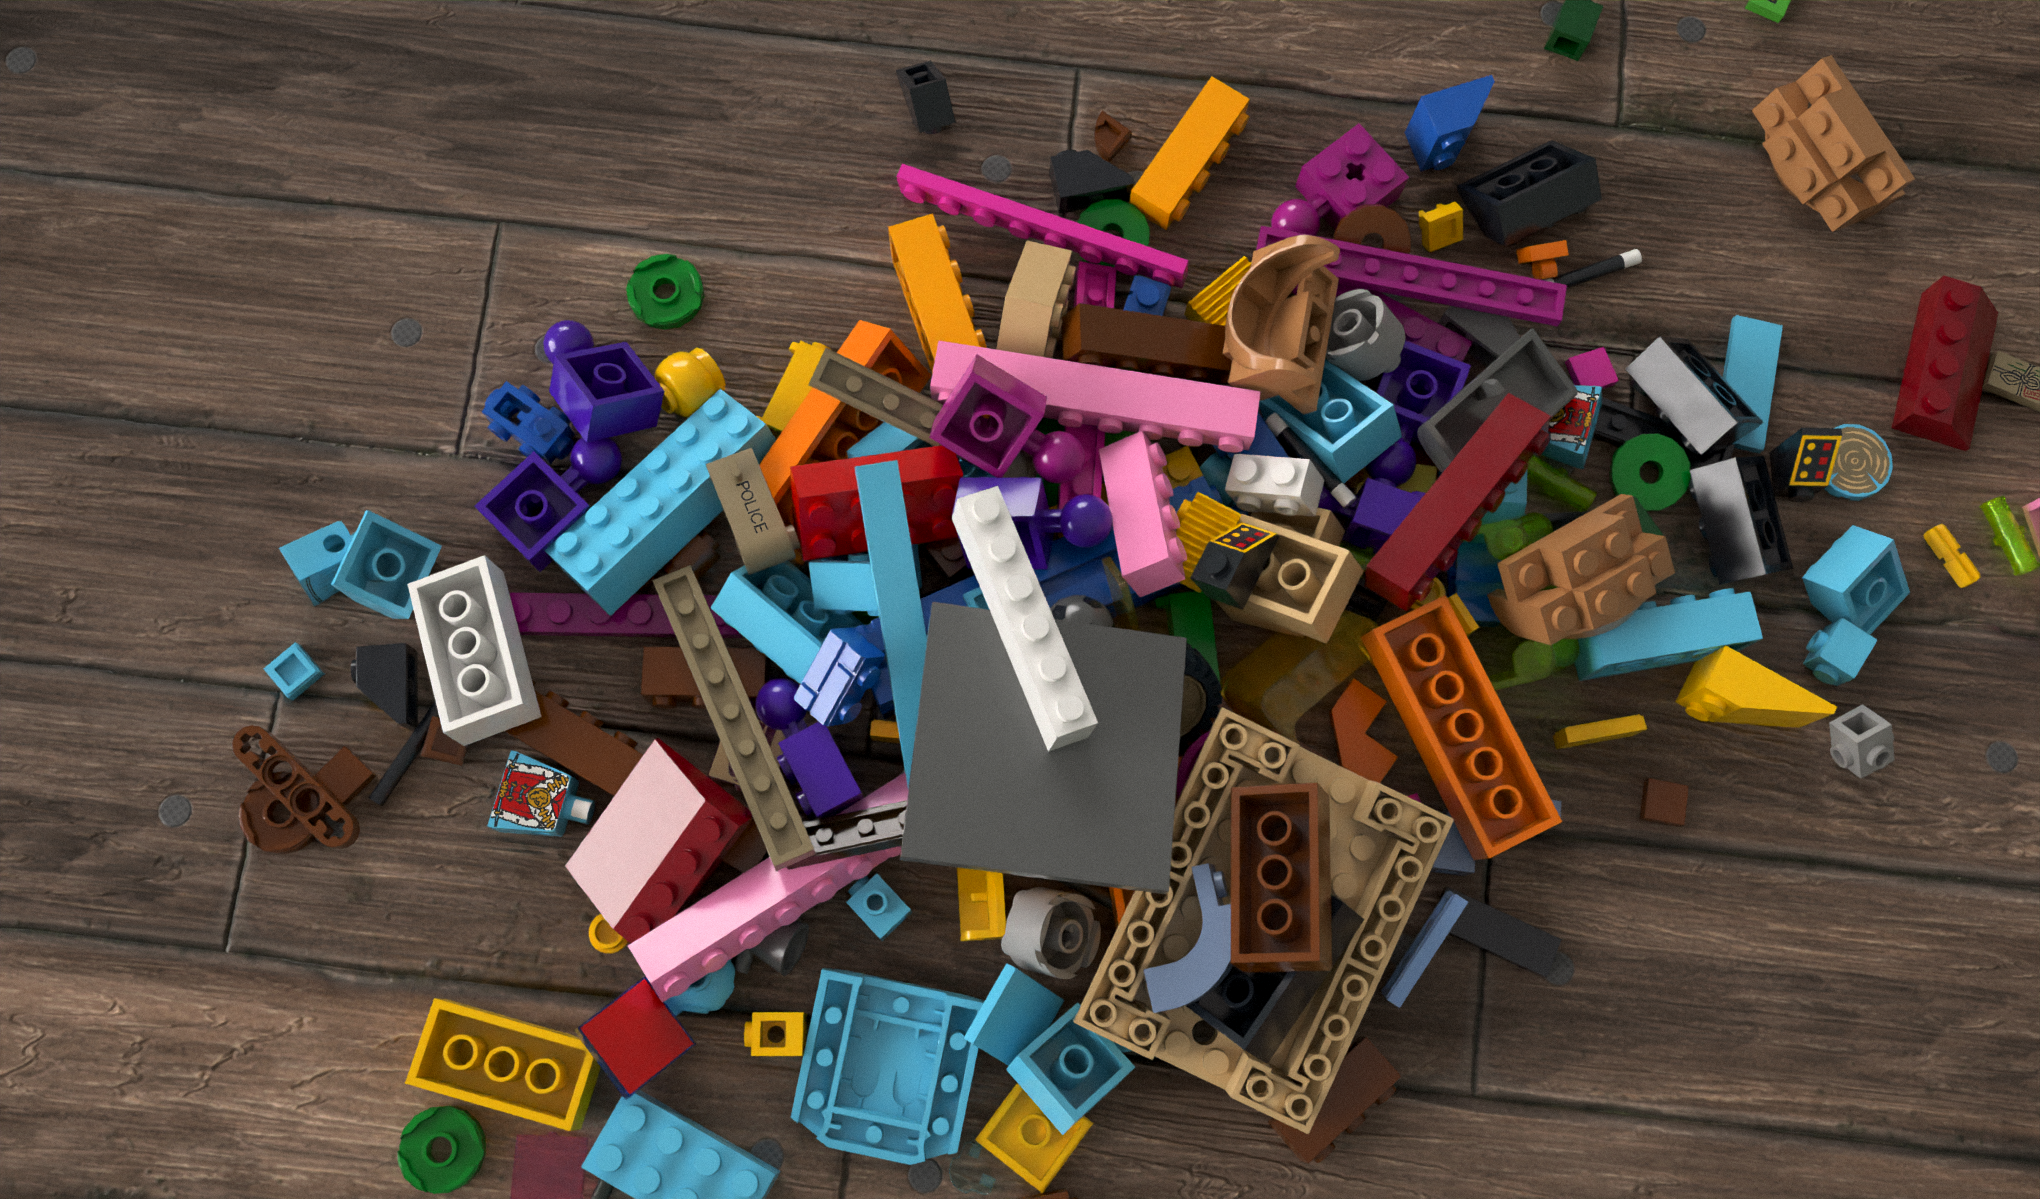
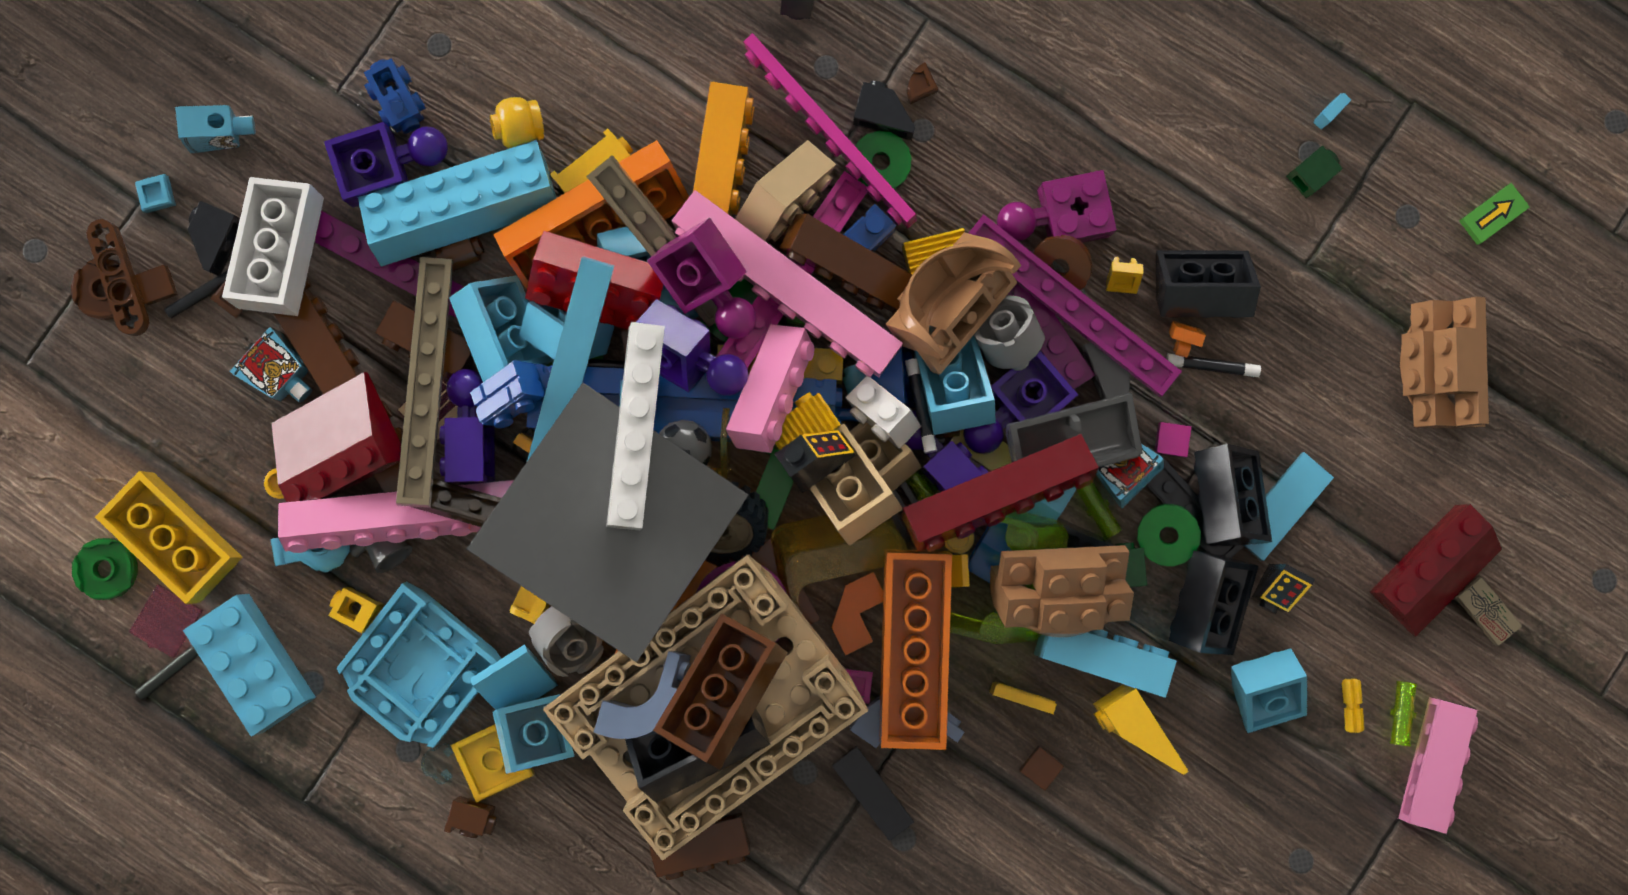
camera: 30 degrees right, 10 degrees up
(382, 563) = (243, 152): medium azure slope -> none
(602, 387) = (452, 97): dark purple brick -> none
(634, 1038) = (256, 565): red tile -> none
(667, 312) = (543, 60): green tile -> none
(752, 512) = (504, 246): dark tan door -> none
(878, 905) = (462, 563): medium azure brick -> none
(1189, 153) = (970, 127): light orange brick -> none
(1423, 948) = (814, 779): light blue tile -> none
(1445, 121) = (1170, 200): blue slope -> none
(1838, 652) = (1225, 731): medium azure brick -> none
(1860, 465) = (1326, 604): dark tan tile -> none
(1861, 741) = (1201, 800): light grey brick -> none

